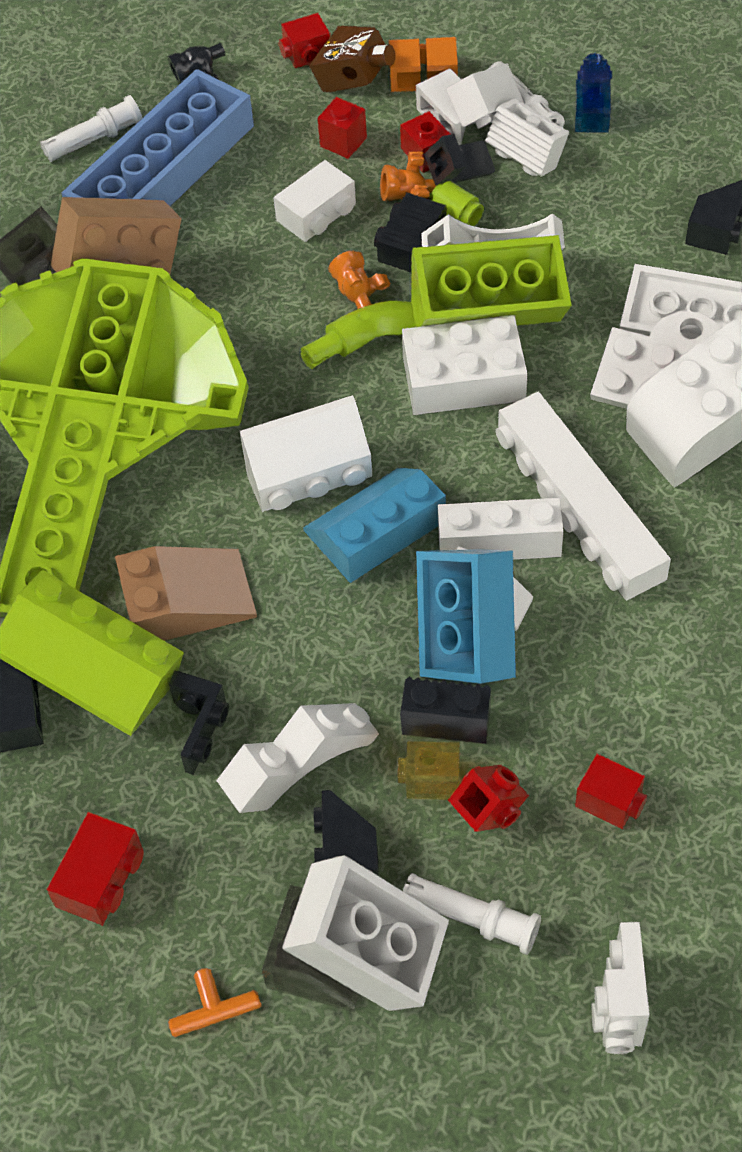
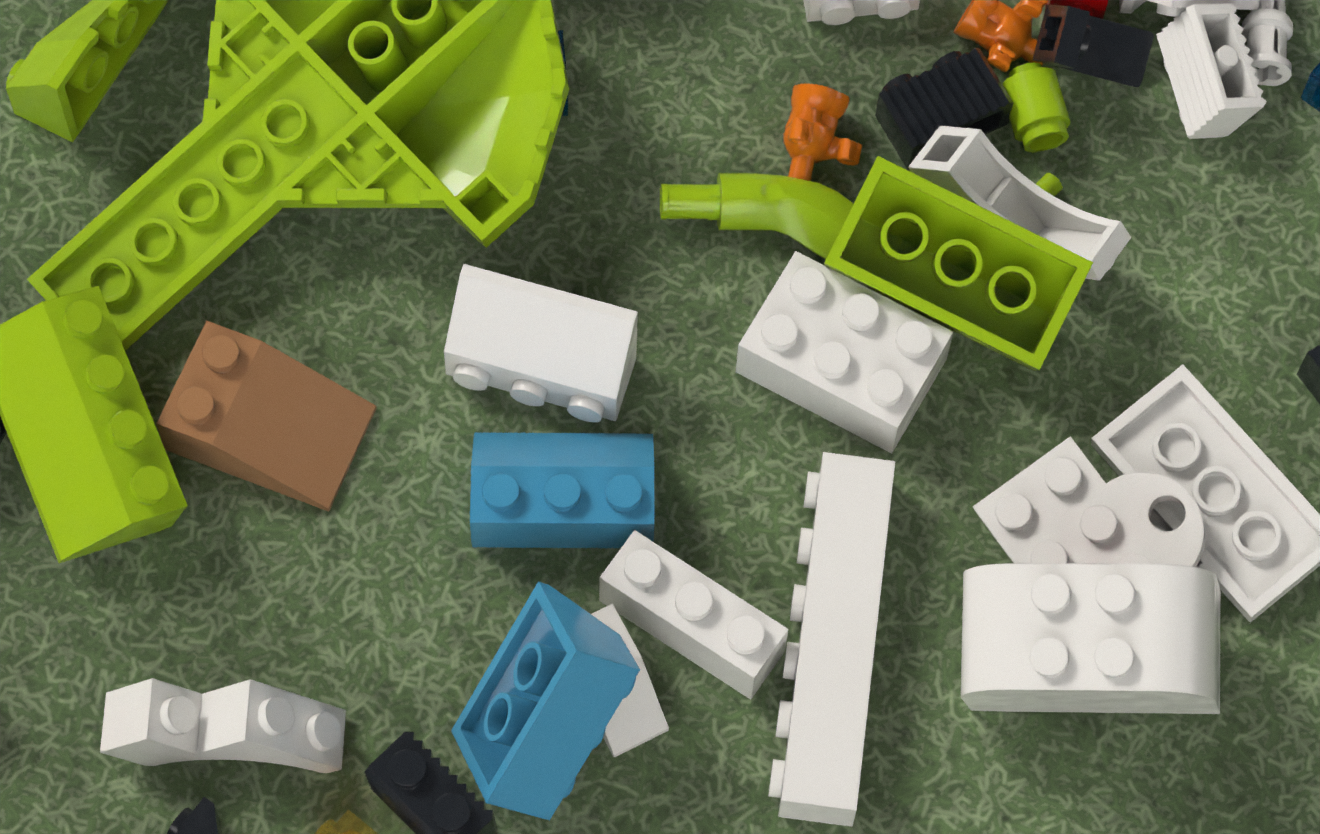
camera: 30 degrees right, 10 degrees up
(195, 696) = (173, 603): black bracket -> none

